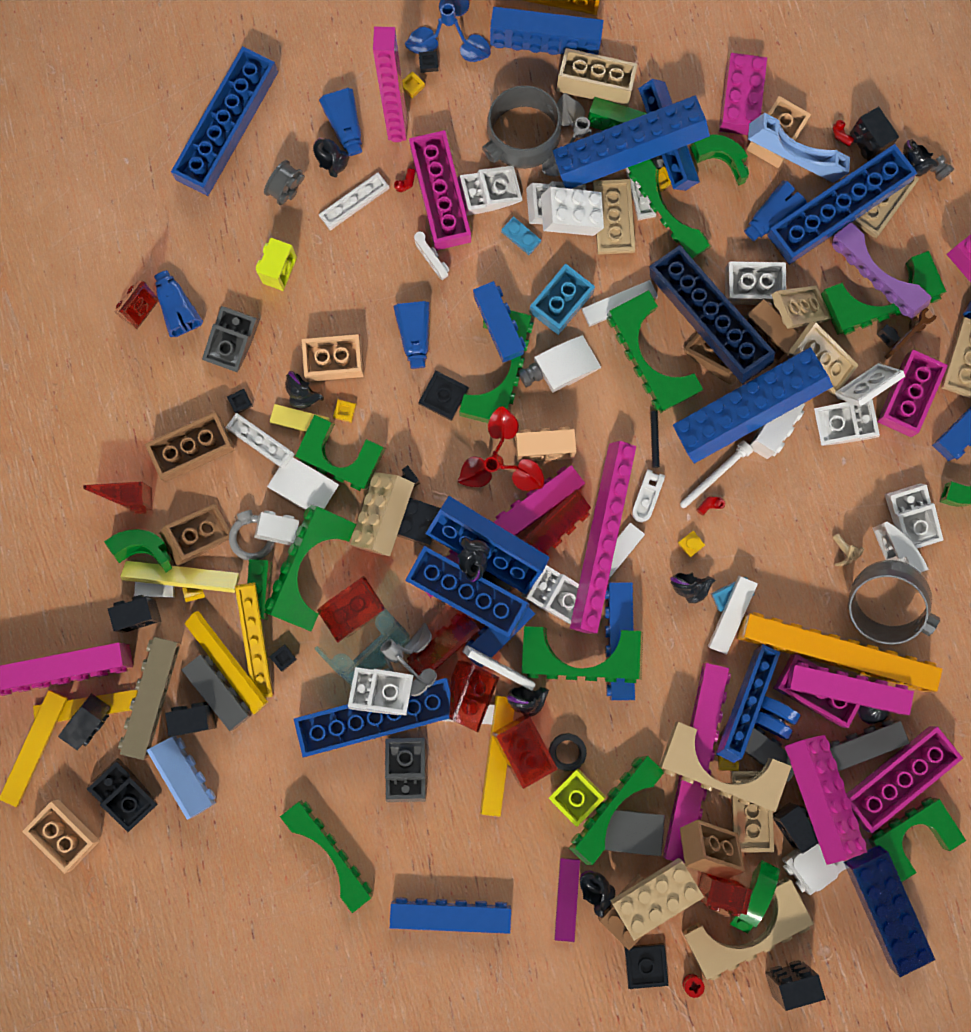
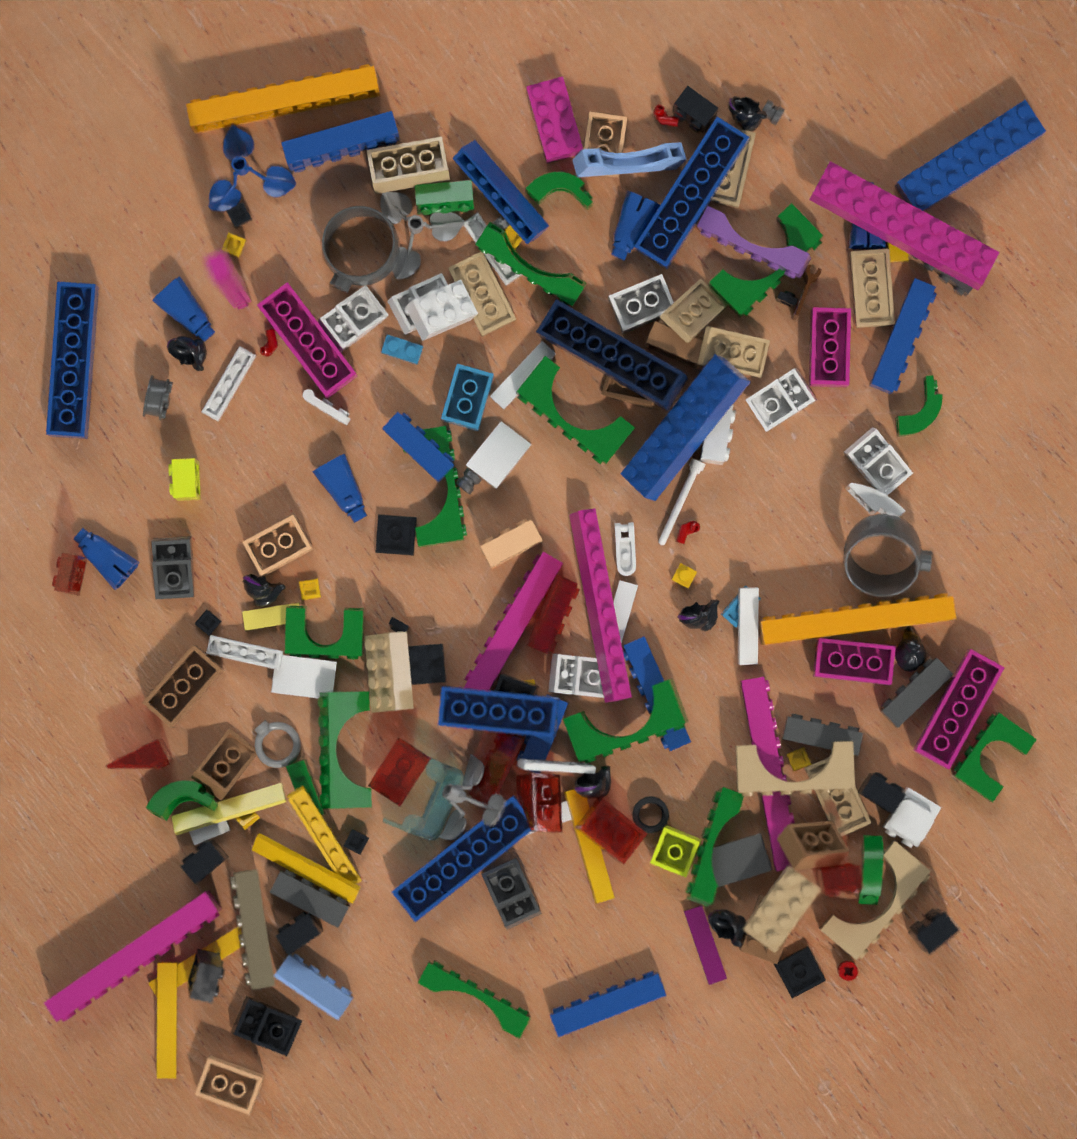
camera: 20 degrees left, 5 degrees up
(276, 528) = (297, 727): white brick -> none
(380, 691) = (459, 834): white slope -> none
(473, 558) = (492, 681): black hair -> none
(477, 471) = (461, 594): red plant -> none
(508, 557) = (498, 661): blue brick -> none
(631, 142) = (468, 223): blue brick -> none
(654, 439) = (610, 492): black bar -> none
(748, 703) = (793, 701): blue brick -> none
(775, 716) = (823, 702): blue wheel -> none
(826, 799) = (895, 756): dark pink brick -> none
(849, 689) = (878, 650): dark pink brick -> none
(852, 552) = (833, 521): tan plant -> none
(869, 384) = (786, 356): white tile -> none
(889, 911) = (992, 830): clear blue brick -> none

